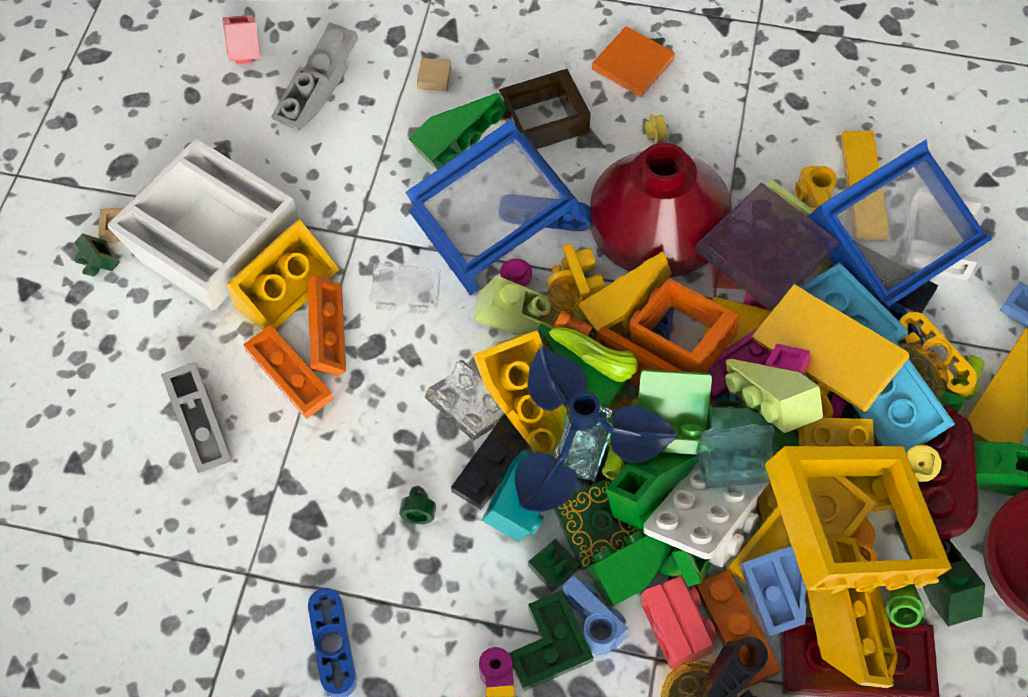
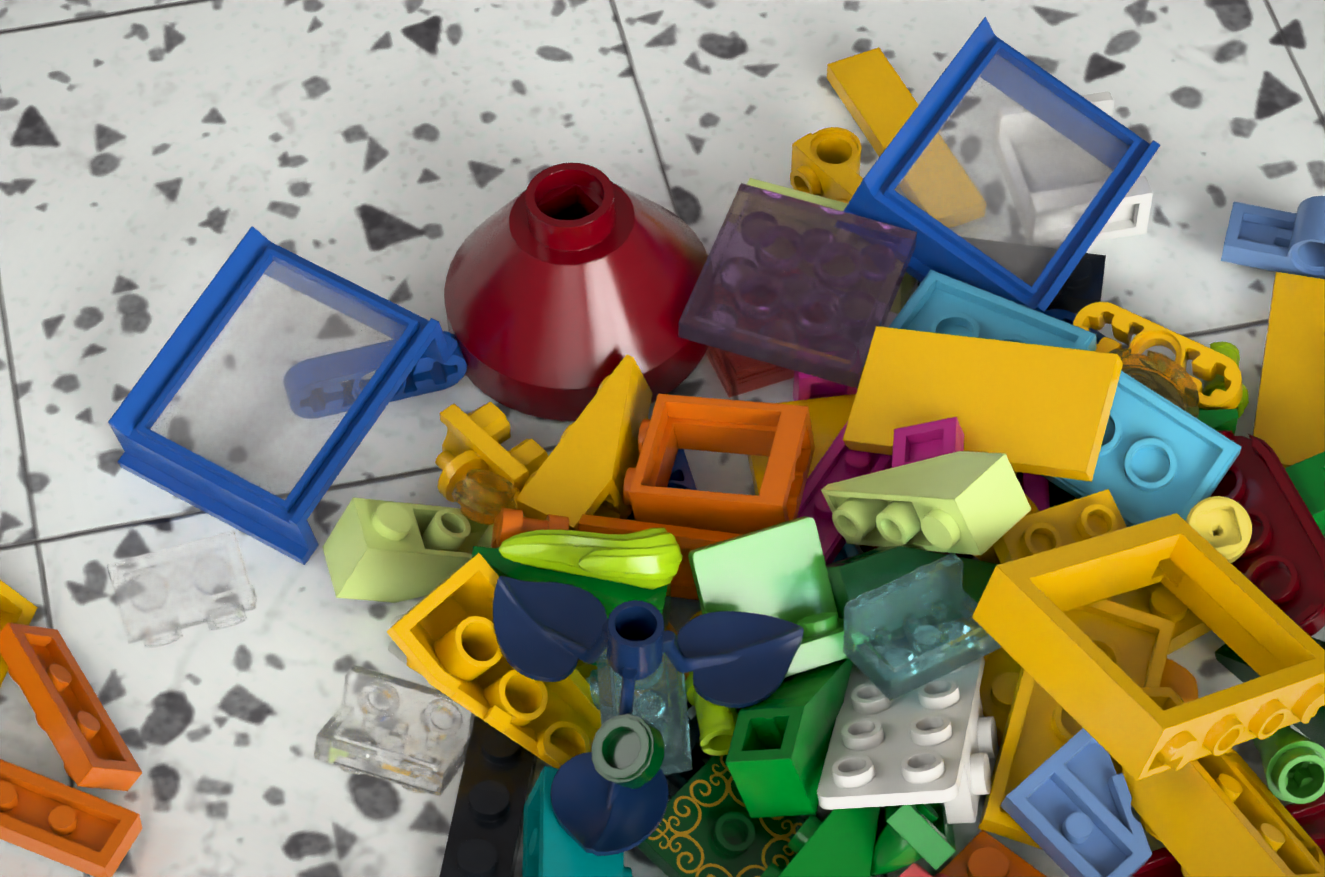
camera: 25 degrees left, 10 degrees down
(434, 74) = (45, 213): tan tile -> none
(457, 129) = (135, 298): green slope -> none
(516, 271) = (372, 484): dark pink plate -> none
(541, 89) = (290, 153): dark brown window -> none
(560, 463) = (628, 751): none -> tile
(633, 61) = (403, 71): orange tile -> none
(656, 128) = (503, 168): light yellow plate -> none

